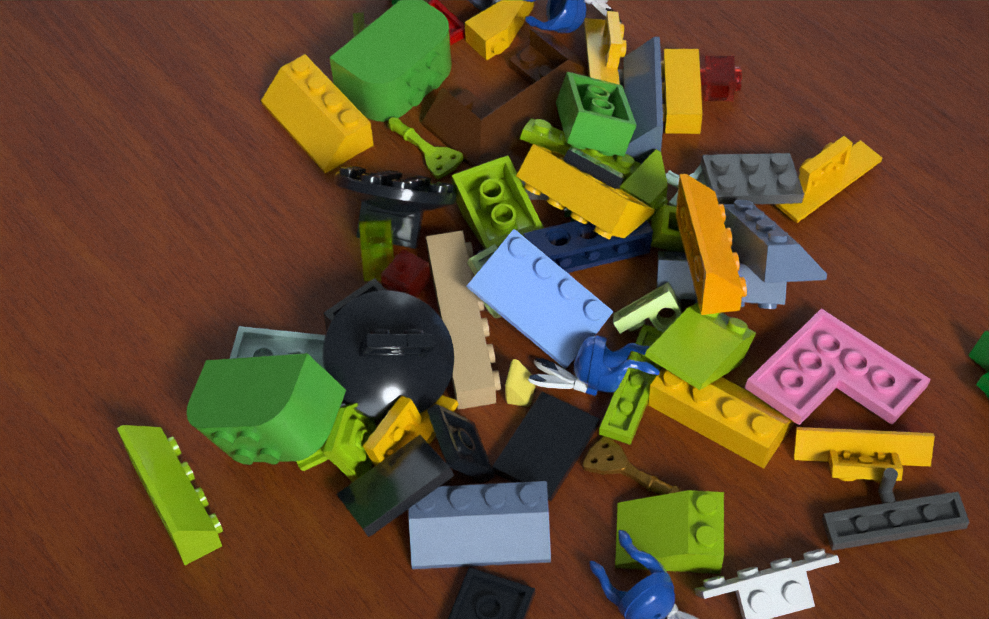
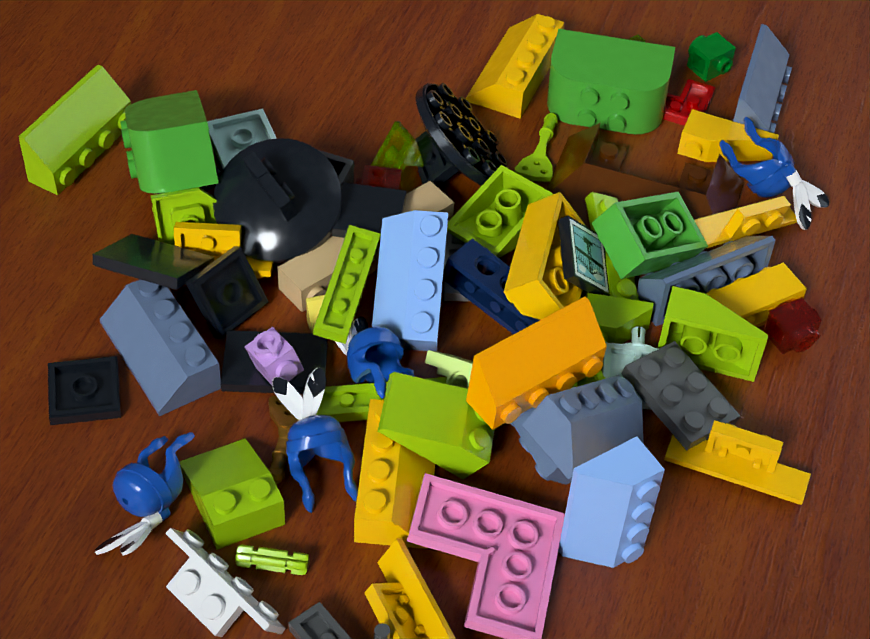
camera: 55 degrees right, 5 degrees down
(444, 291) = (366, 206): none -> black tile
(516, 345) = (346, 284): none -> lime plate
(564, 436) = (274, 356): none -> lavender brick
(660, 444) = (313, 434): none -> blue hair
(707, 130) = (712, 334): none -> lime slope
(757, 533) = (272, 559): none -> lime axle
(864, 259) = (611, 505): none -> light blue slope

